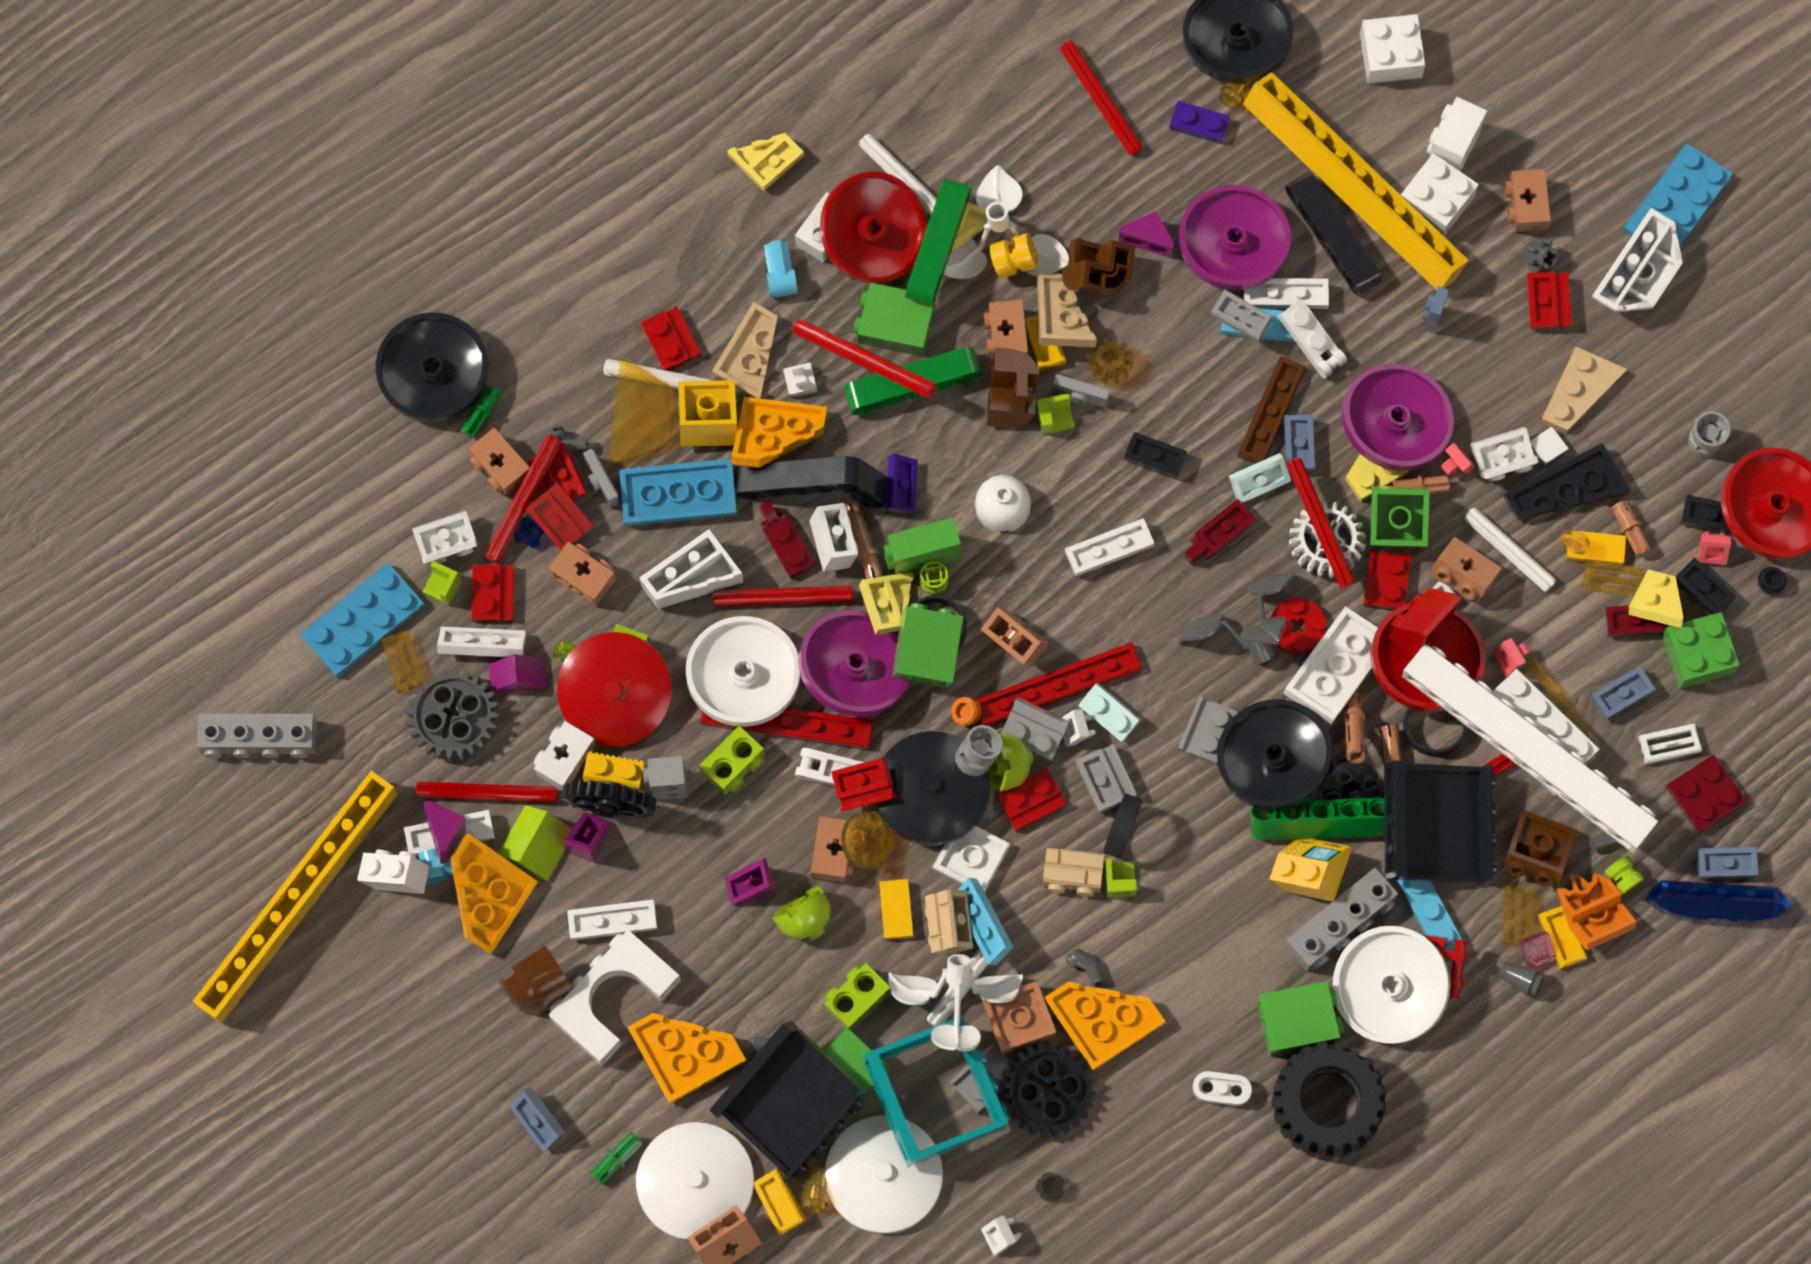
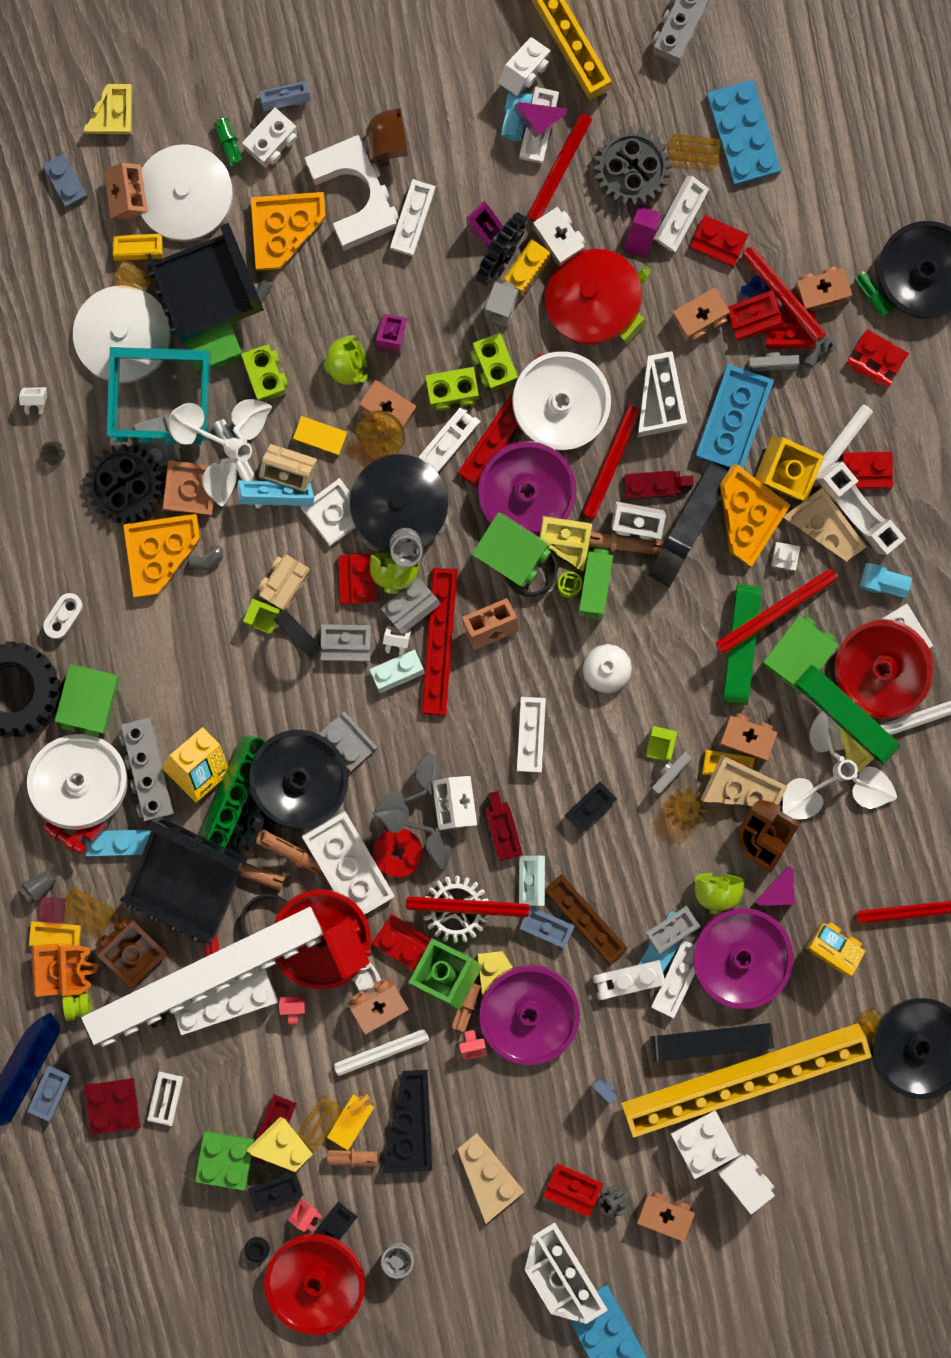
camera: 115 degrees right, 10 degrees up
(442, 584) = (743, 204): lime panel -> none
(445, 537) = (779, 221): white bracket -> none
(487, 891) = (477, 132): light orange plate -> none
(536, 842) = (501, 187): lime slope -> none
(539, 378) = (882, 353): none -> red plate
(592, 1112) = (270, 138): none -> white brick
(639, 413) = (813, 416): clear yellow wing -> none
(709, 339) = (876, 530): none -> white arch
(775, 795) = (450, 381): none -> lime brick
(863, 784) = (424, 450): red plate -> none
(901, 484) = (658, 595): dark purple plate -> none
(966, 711) = (450, 560): orange tile -> none
(1011, 388) = (695, 716): reddish brown brick -> none
(1014, 255) = (809, 772): yellow wheel -> none
(1179, 289) = (718, 893): none -> lime cylinder
(1180, 154) = (836, 949): none -> yellow slope
(1199, 122) = (859, 984): dark purple plate -> none
(1219, 588) = (454, 802): none -> white brick
(1392, 49) = (849, 1170): white brick -> none
(1504, 454) = (459, 1086): white bracket -> none
(1548, 446) = (452, 1126): white tile -> none
(1561, 700) = (235, 1031): clear yellow bar -> none
(1623, 693) = (222, 1081): sand blue plate -> none

